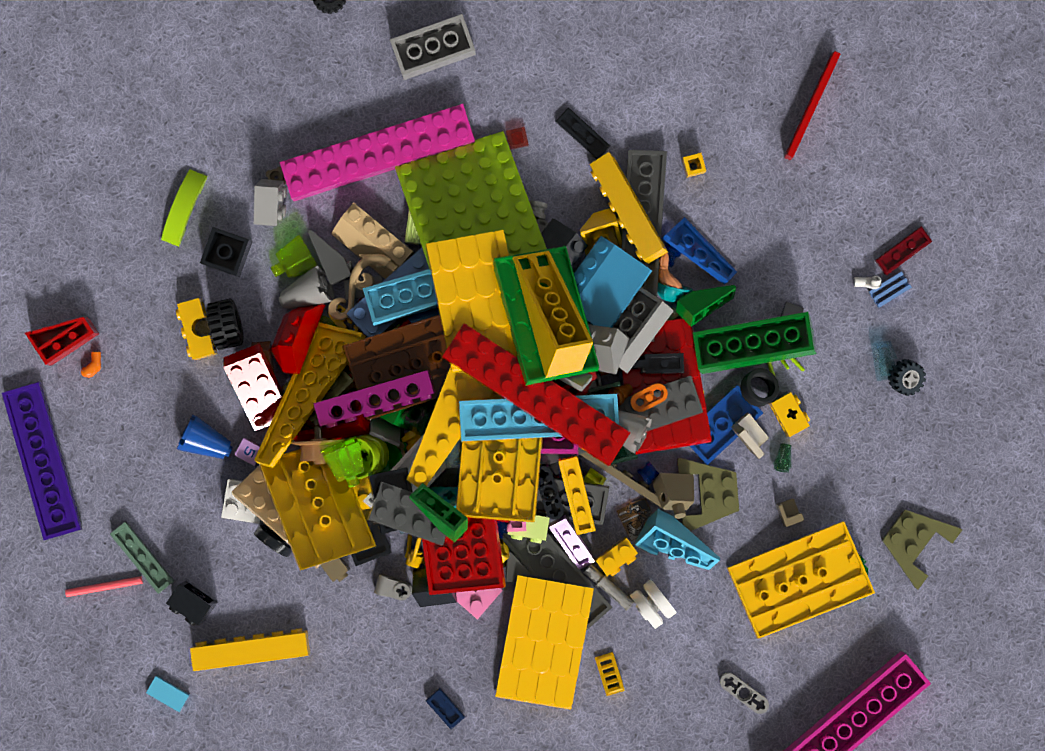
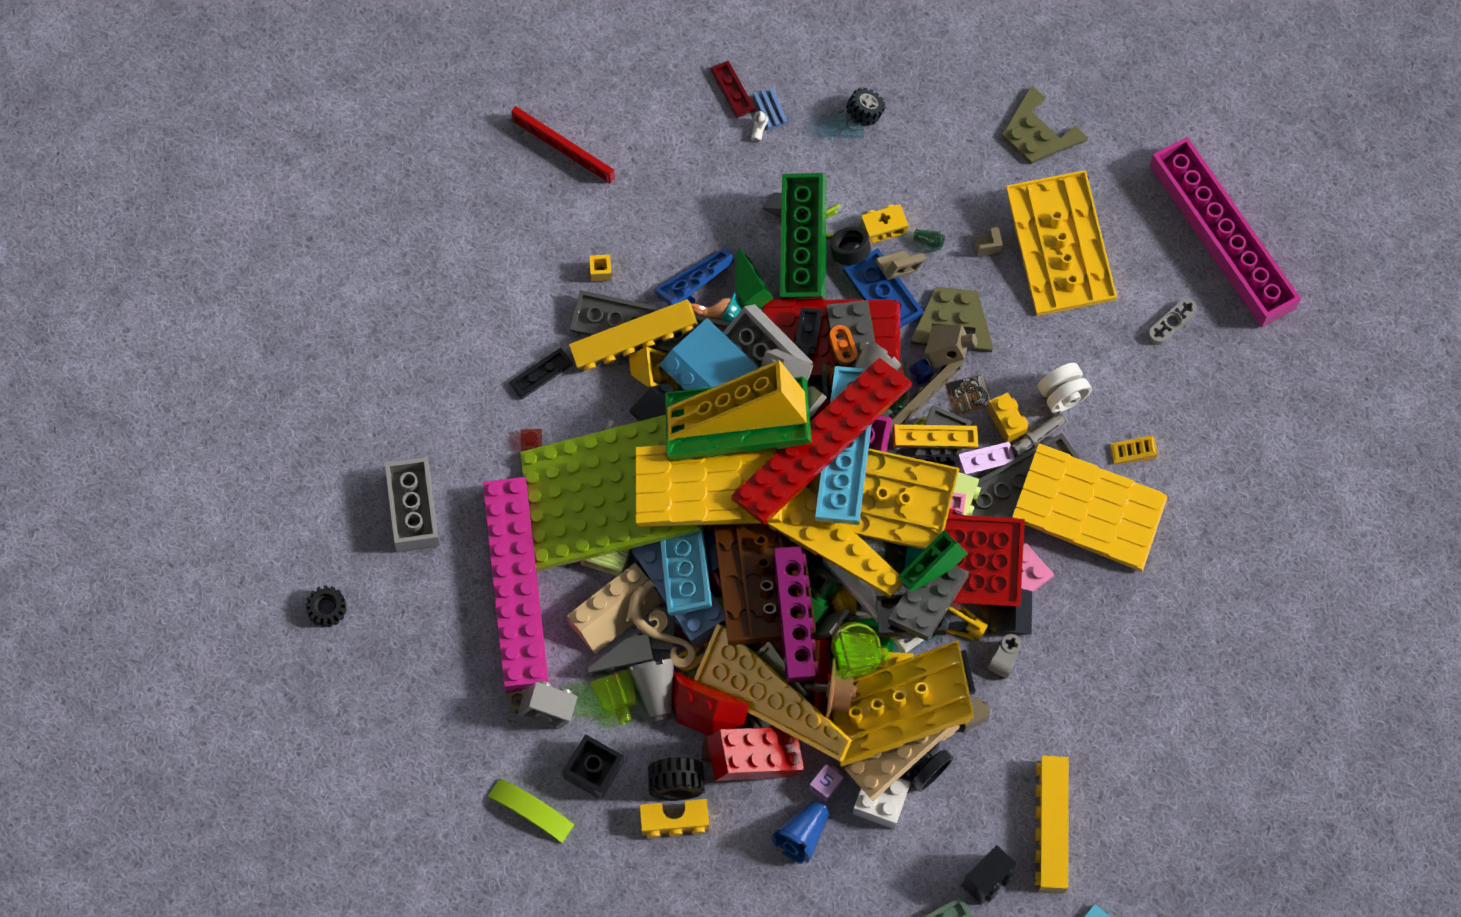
camera: 80 degrees left, 20 degrees down
(445, 708) = (1148, 625): dark blue plate -> none
(671, 537) = (994, 363): medium azure wedge -> none

